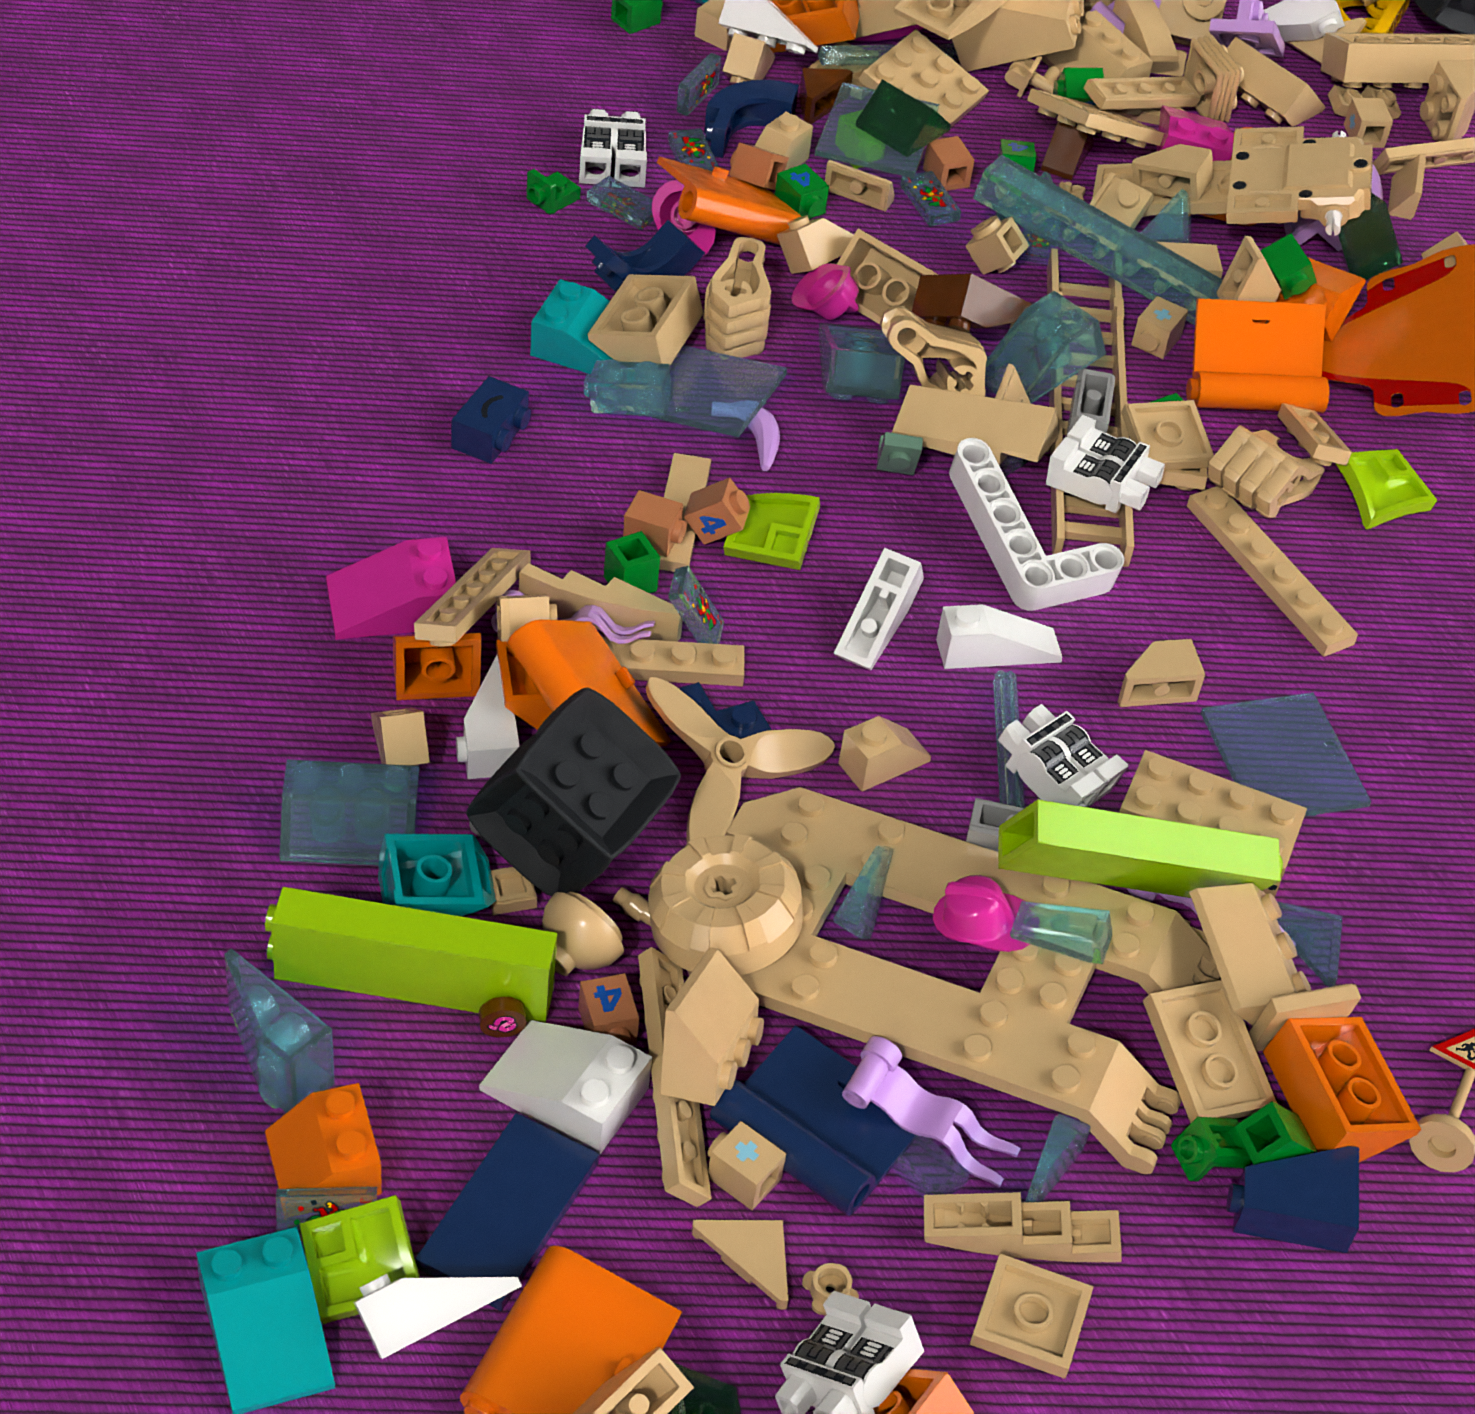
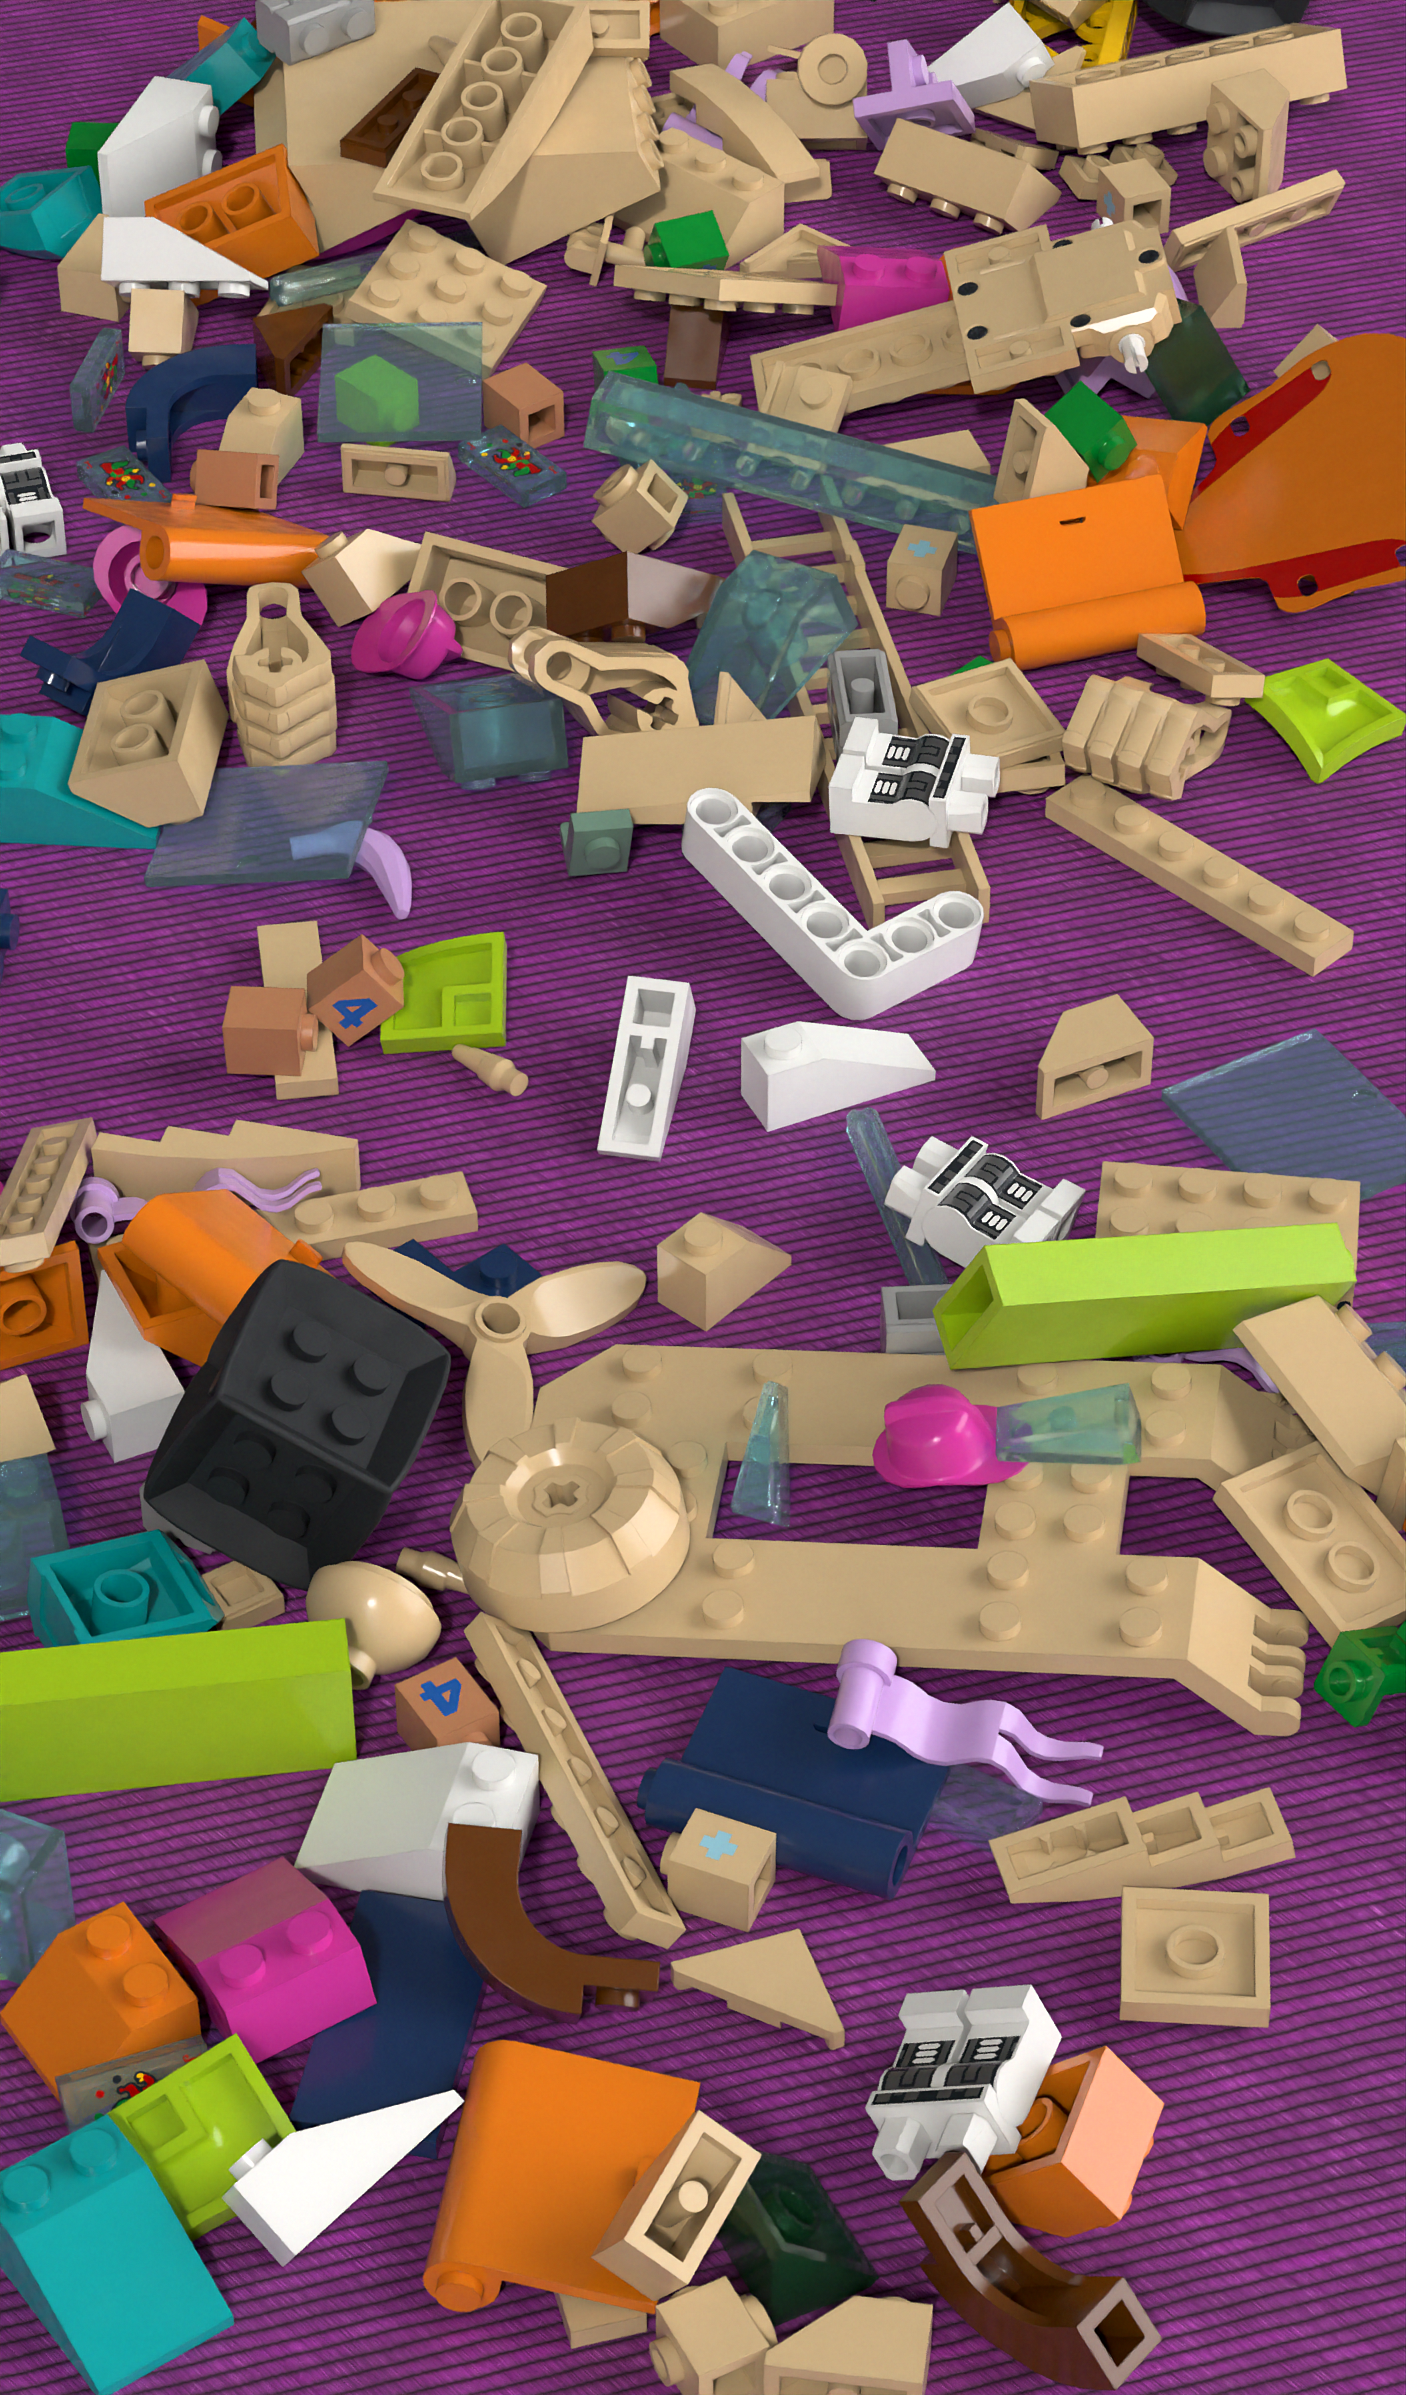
camera: 10 degrees left, 5 degrees down
(438, 1145) = (269, 1959): none -> dark pink slope
(502, 1017) = (294, 1767): reddish brown tile -> none
(519, 610) = (115, 1199): tan slope -> none
(582, 1170) = (507, 1949): none -> reddish brown arch
(629, 388) = (157, 848): clear light blue brick -> none
(632, 561) = (255, 1089): green brick -> none
(695, 607) = (373, 1131): clear light blue tile -> none
(708, 1032) = (610, 1698): tan slope -> none
(786, 583) = (492, 1069): none -> tan piece
(802, 190) = (315, 498): green brick -> none
(826, 1276) = (886, 1988): tan plate -> none
(900, 120) = (434, 357): clear green slope -> none
(1060, 1151) = (1160, 1736): clear light blue slope -> none
(1141, 92) = (782, 234): tan tile -> none
(1173, 169) = (873, 336): tan slope -> none
(1173, 221) = (893, 410): clear light blue slope -> none
(1213, 77) = (880, 189): tan brick -> none
(1306, 74) = (1036, 155): none -> tan tile

